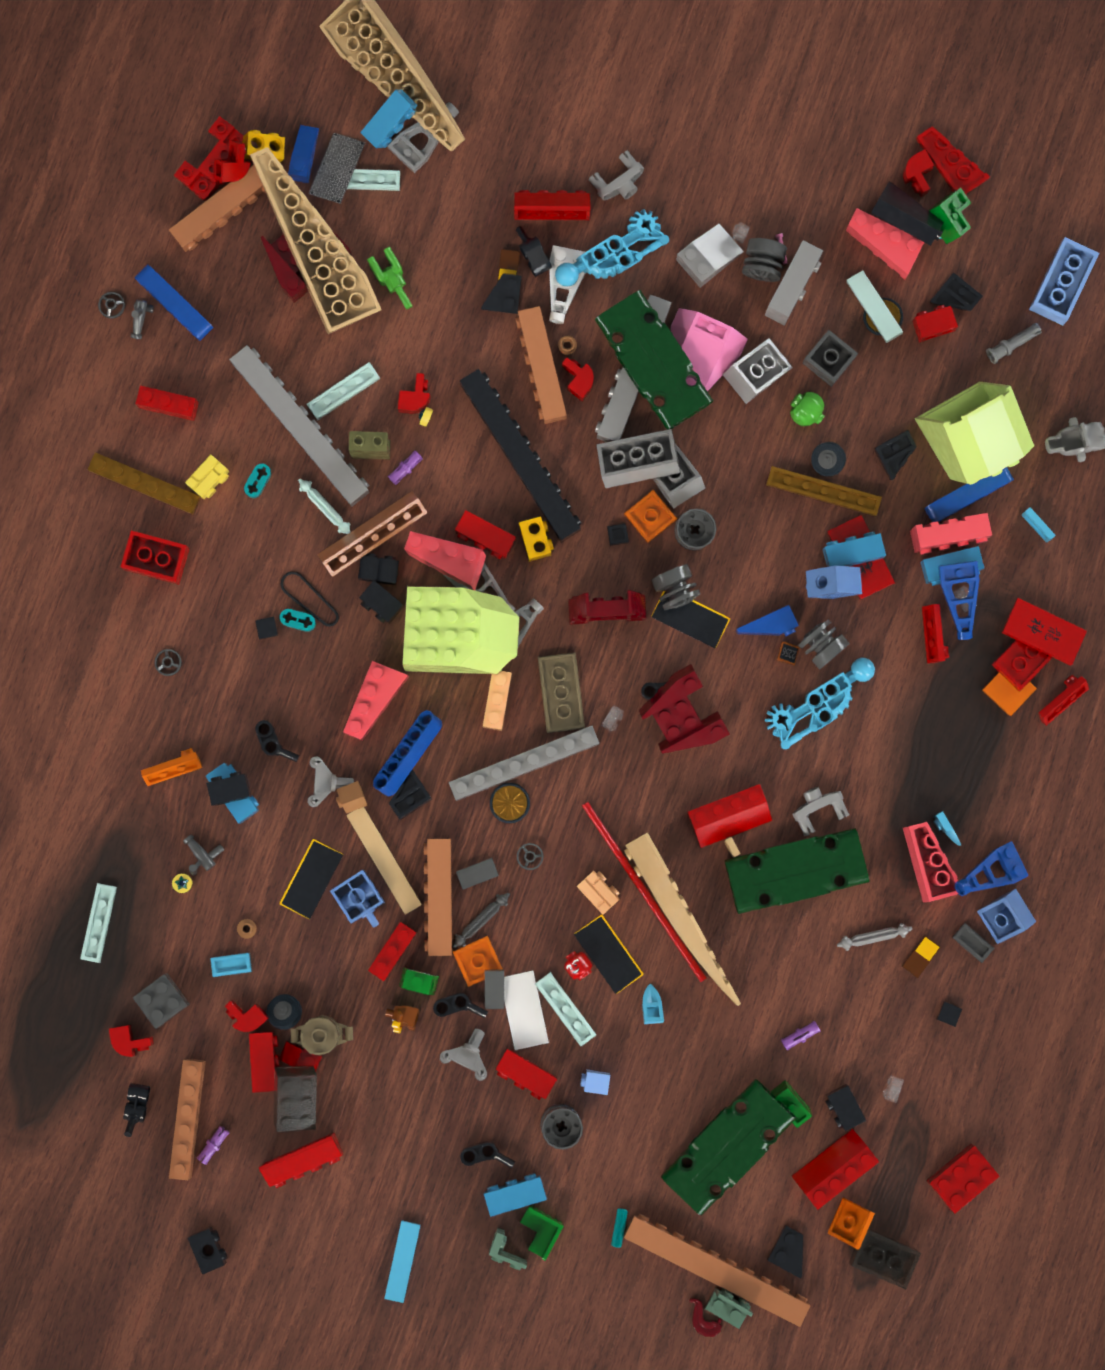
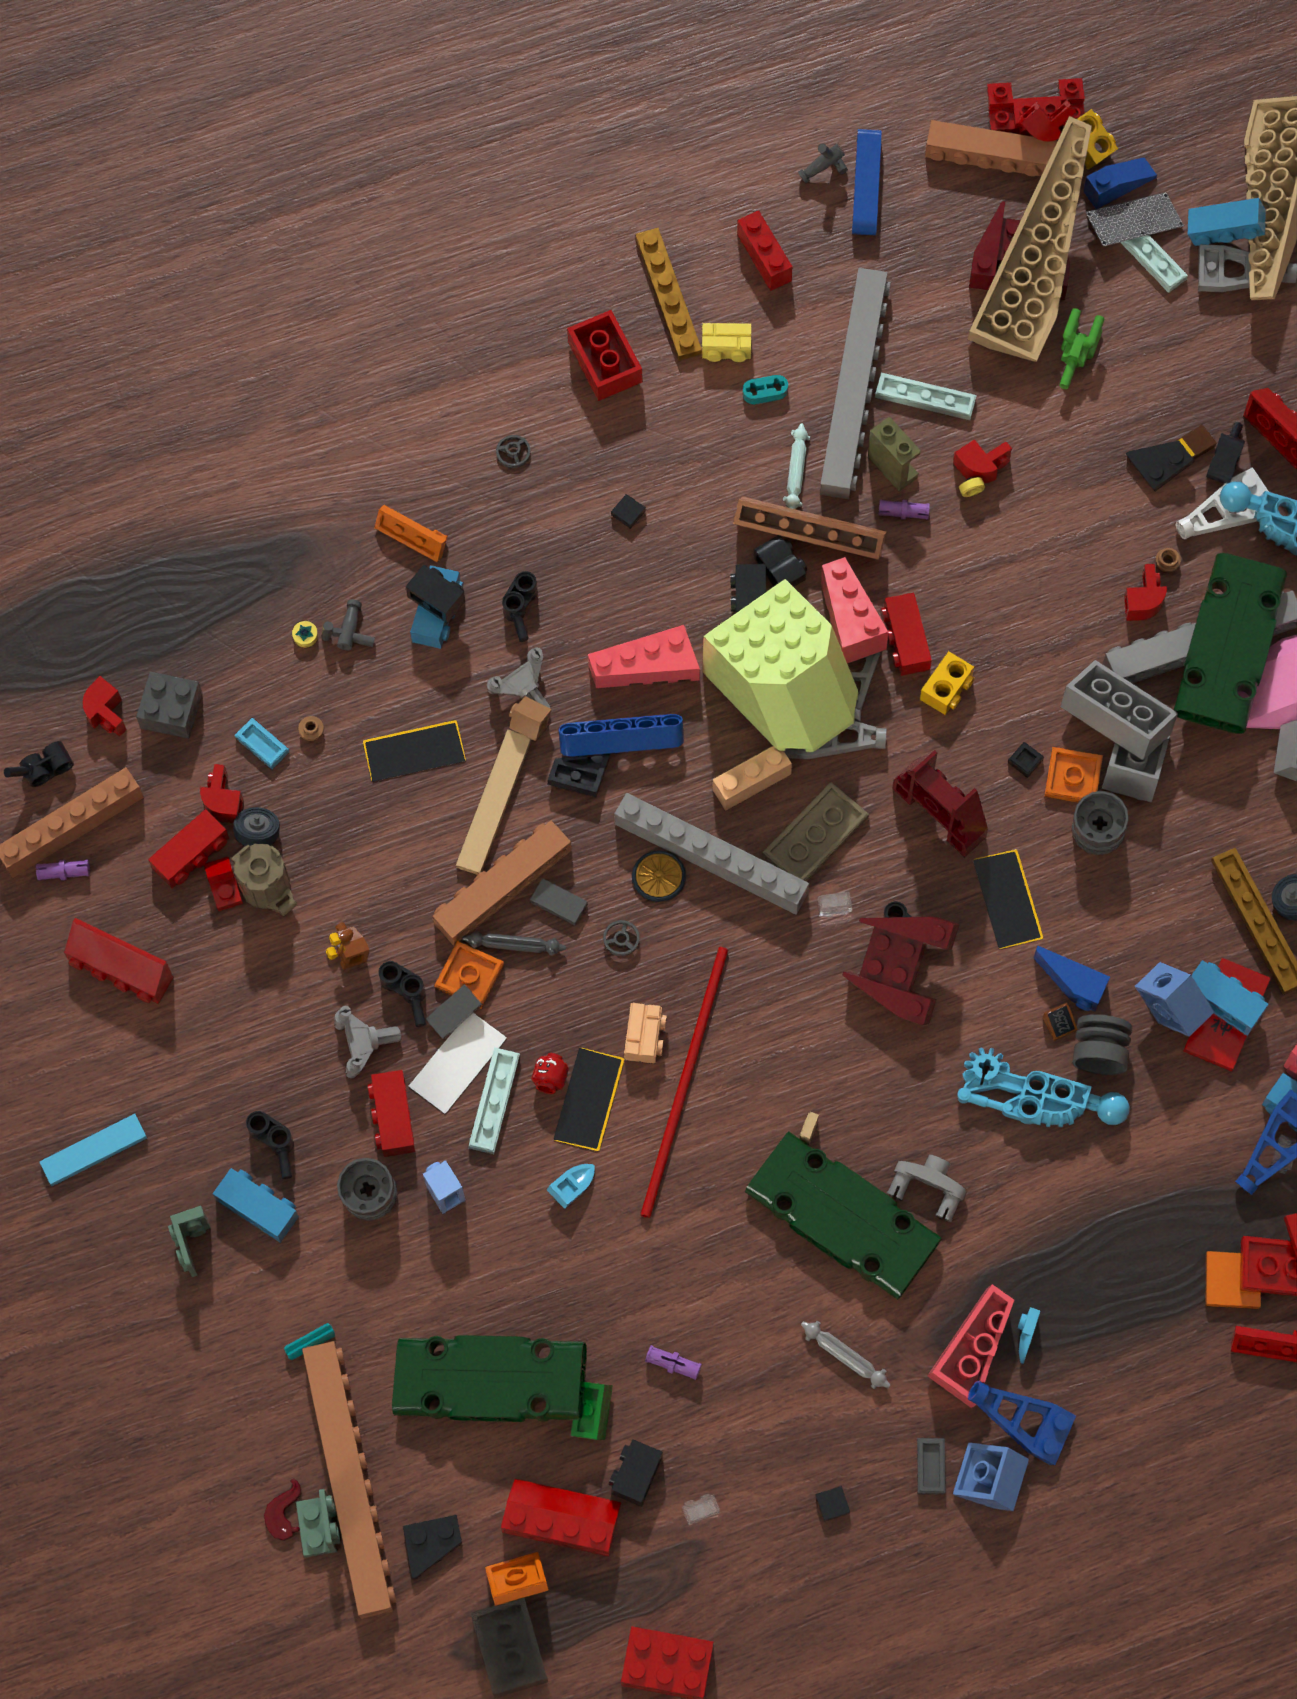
camera: 55 degrees right, 15 degrees down
(98, 923) = (198, 590): light aqua tile -> none
(114, 307) = (807, 135): dark grey piece -> none
(295, 1098) = (175, 902): clear smoke brick -> none
(296, 624) = (666, 530): teal beam -> none
(320, 596) = (681, 531): black piece -> none
(358, 898) = (433, 804): medium blue piece -> none
(392, 951) = (407, 881): red brick -> none
(418, 981) = (398, 928): green torso -> none
(520, 455) = (1015, 605): black brick -> none
(542, 365) = (1124, 551): nougat brick -> none
(546, 1228) = (246, 1269): green panel -> none
(665, 891) = (694, 1120): tan wedge -> none
(675, 586) = (1024, 851): dark grey wheel -> none
(729, 816) = (840, 1099): red slope -> none
(921, 956) = (867, 1422): reddish brown tile -> none
(933, 634) = (1202, 1167): red hinge -> none

